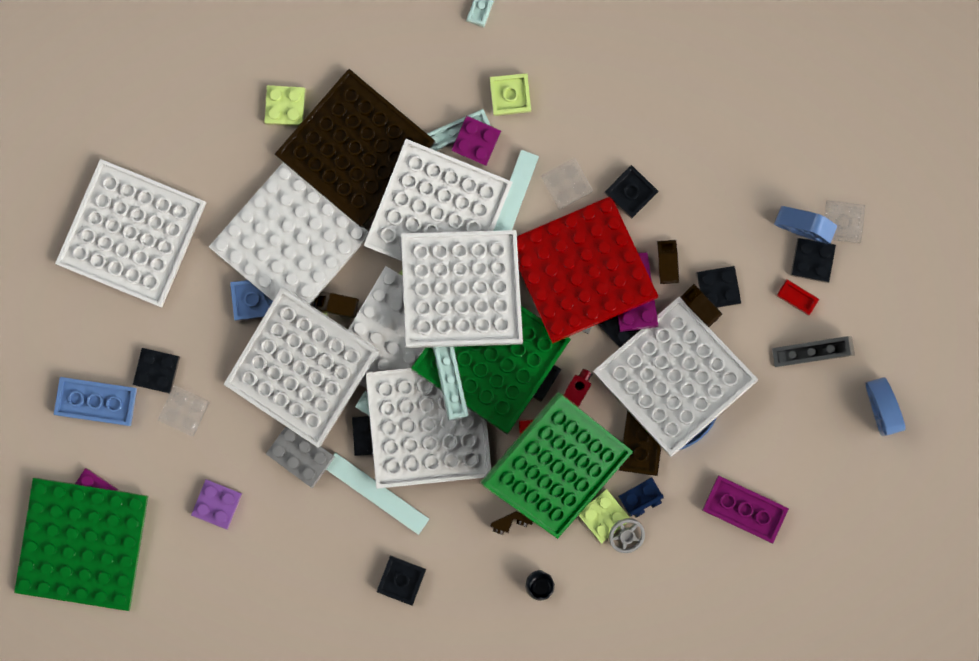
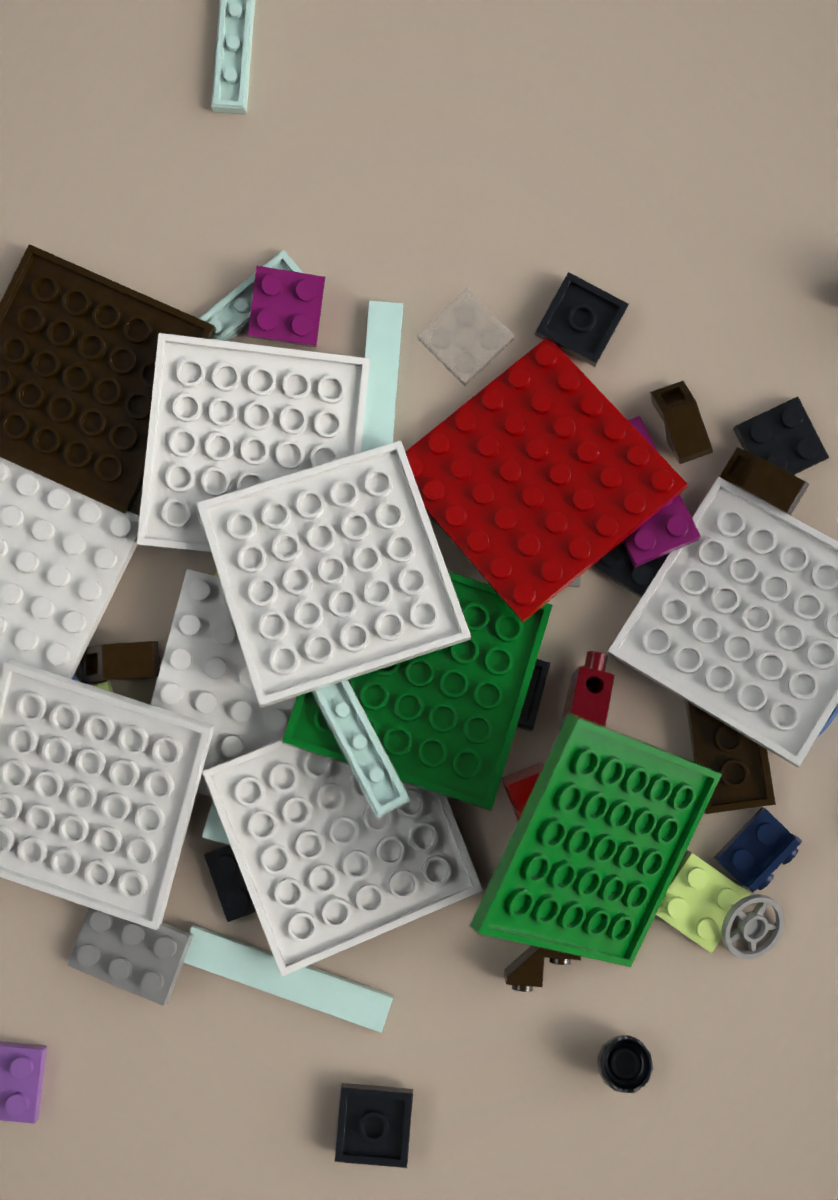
camera: 15 degrees left, 0 degrees up
(510, 94) = (323, 211): yellowish green plate -> none

